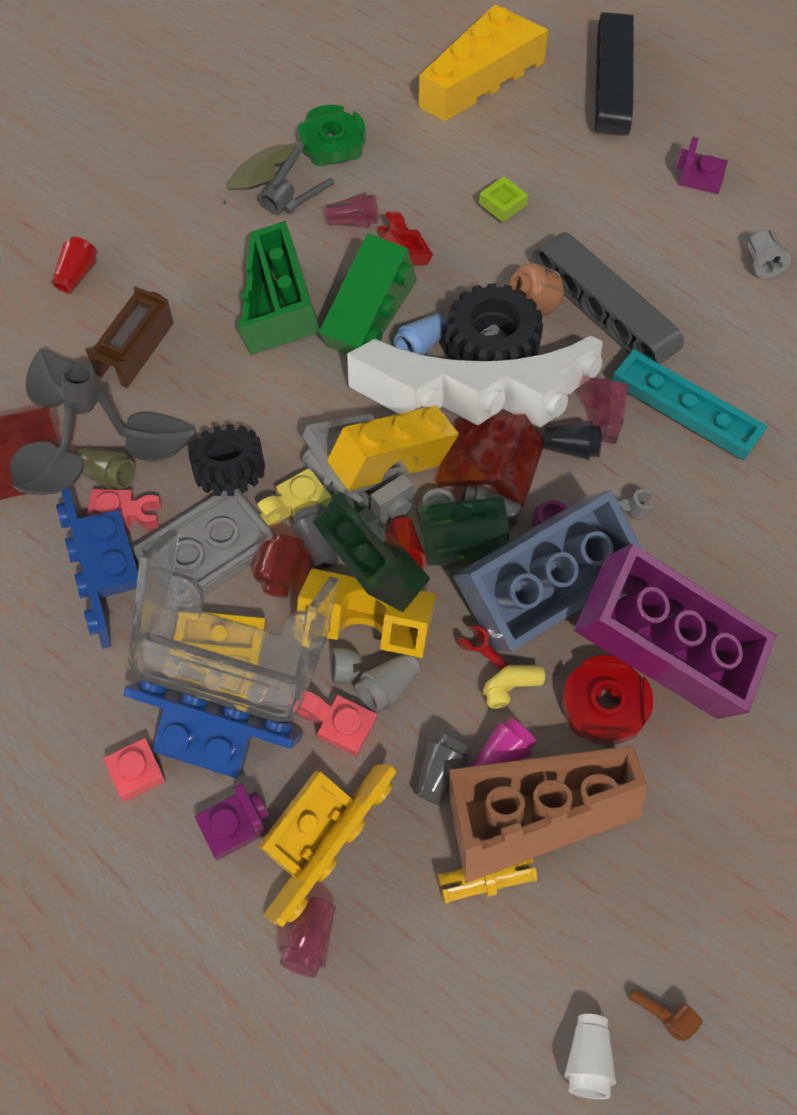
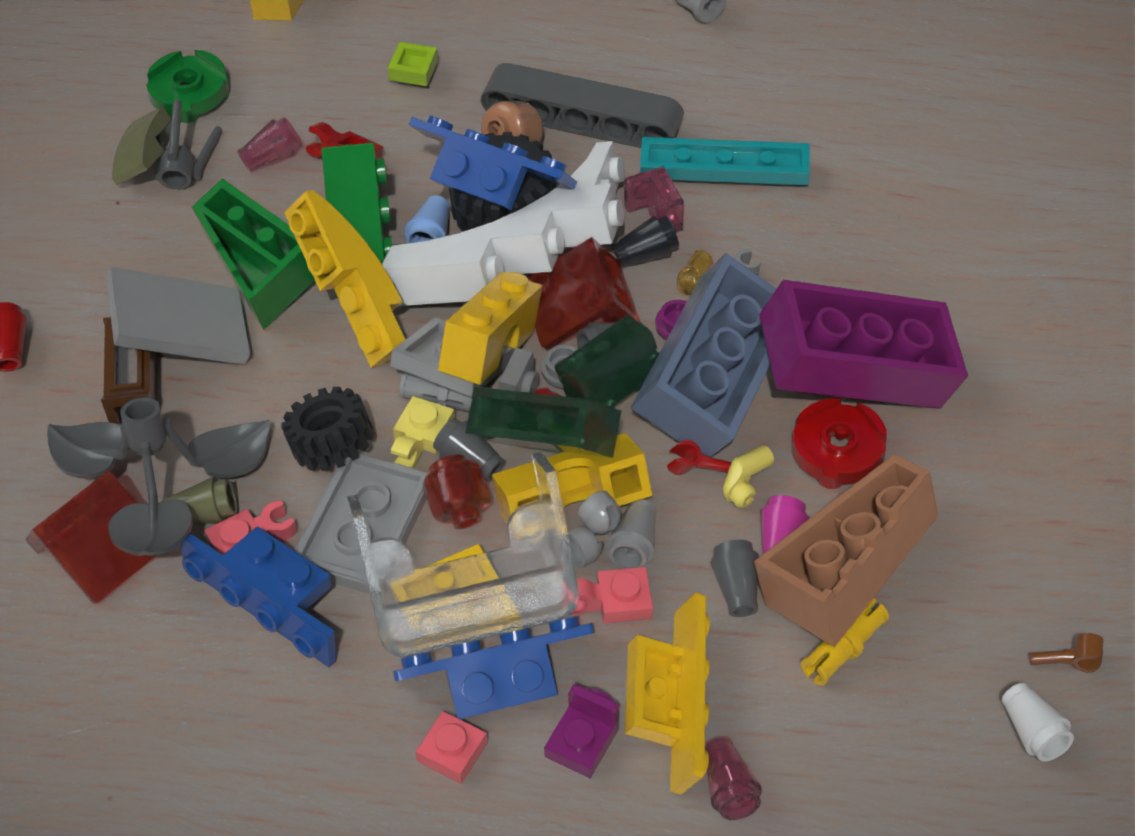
camera: 30 degrees left, 10 degrees down
(184, 312) = (176, 316): none -> light grey tile
(321, 332) = (348, 265): none -> yellow slope
(366, 649) = (600, 512): none -> light grey hinge
(476, 314) = (483, 170): none -> blue bracket
(595, 484) = (692, 271): none -> clear yellow arm

